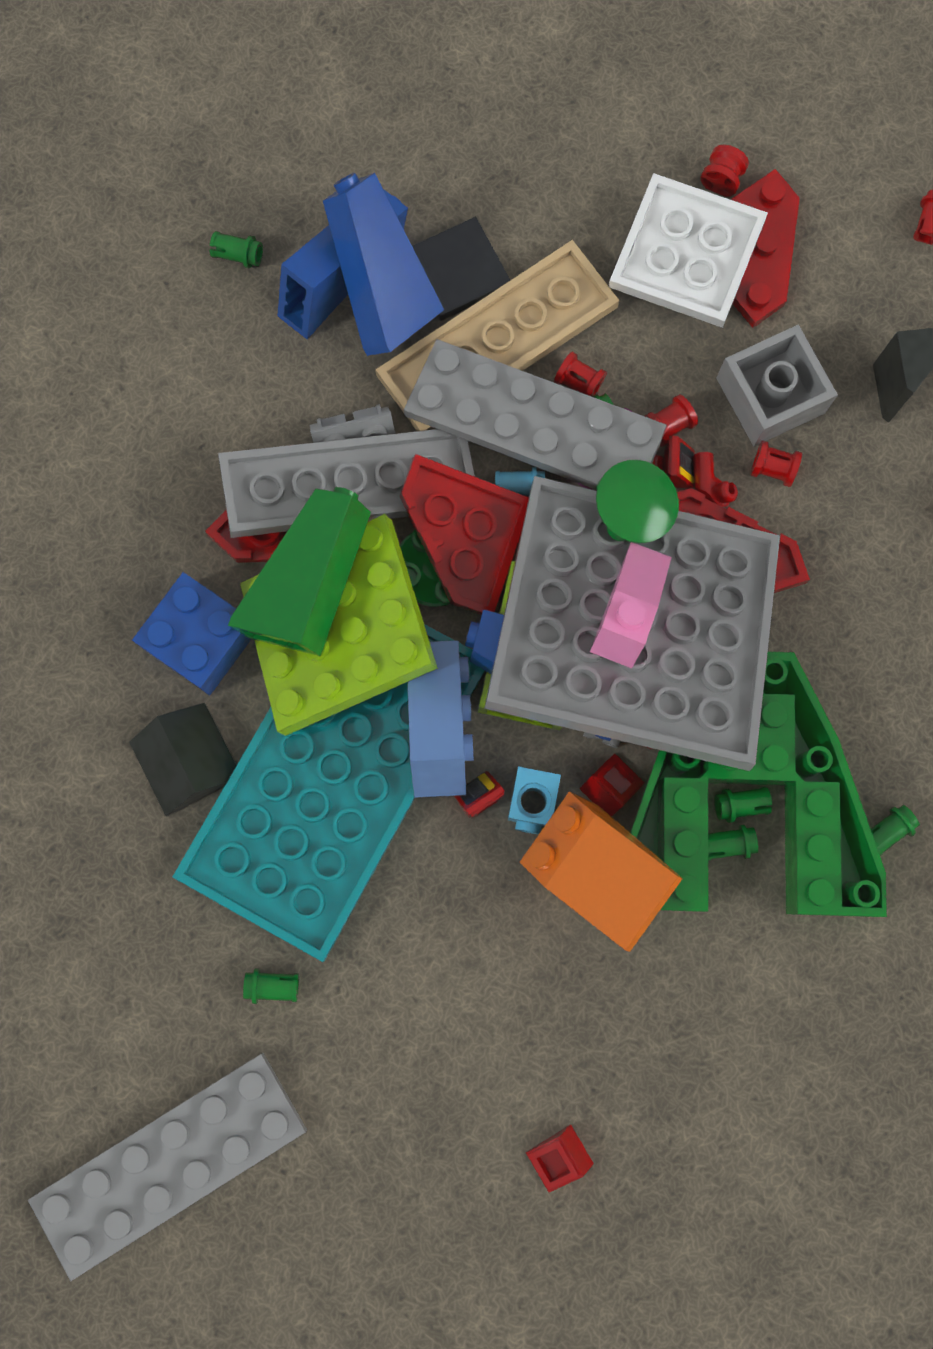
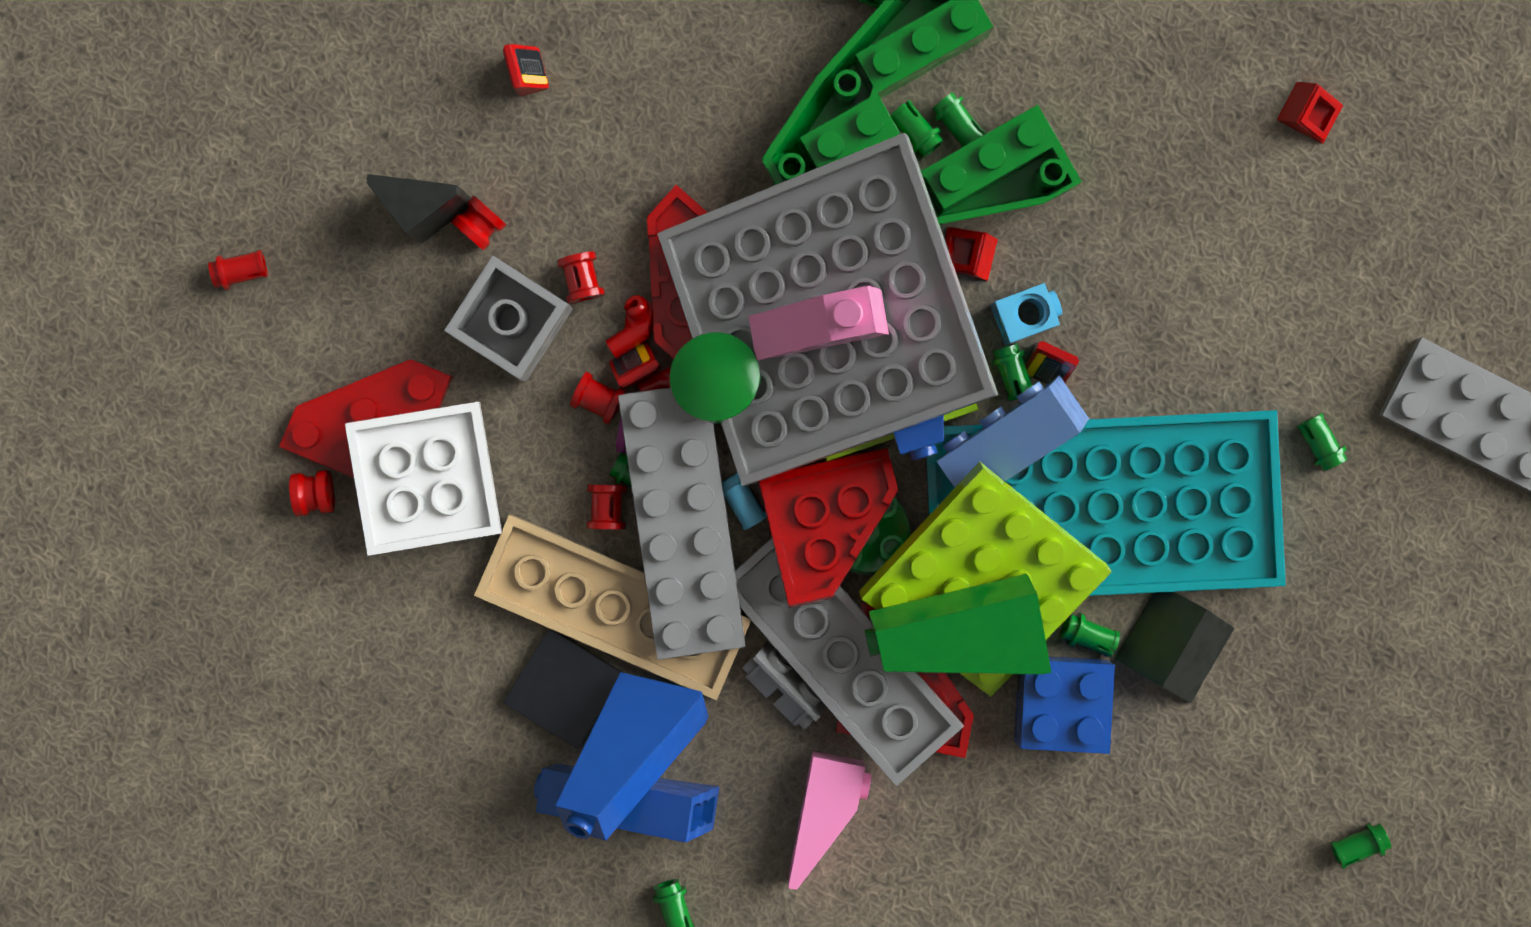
camera: 125 degrees left, 10 degrees up
(237, 692) = (1089, 634): none -> green pin
(243, 409) = (828, 805): none -> bright pink slope
(494, 762) = (1012, 369): none -> green pin
(600, 870) = (1061, 217): orange slope -> none
(866, 410) = (478, 222): none -> red wheel

